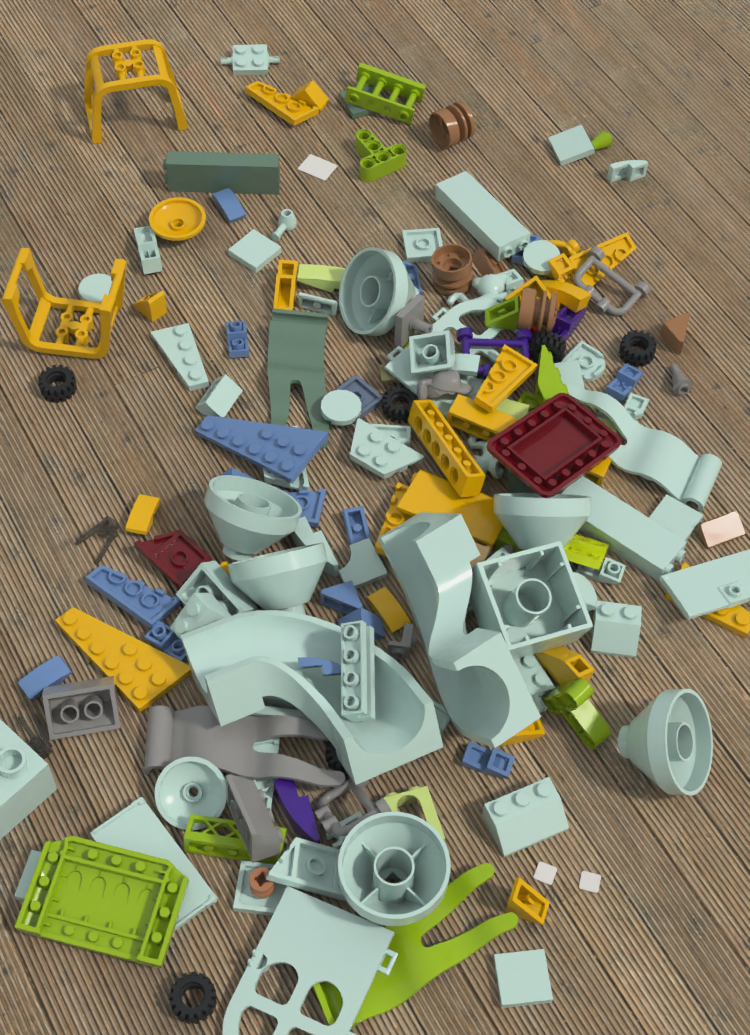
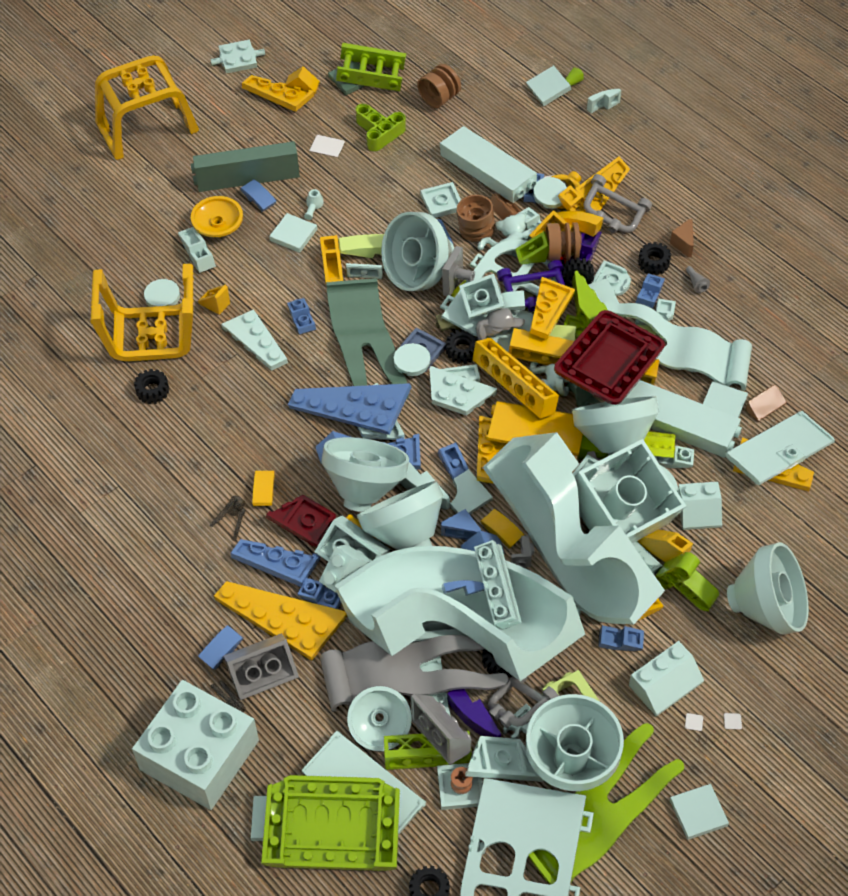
camera: 10 degrees left, 0 degrees up
(219, 397) = (301, 371): light aqua brick -> none
(527, 903) = (686, 749): yellow slope -> none

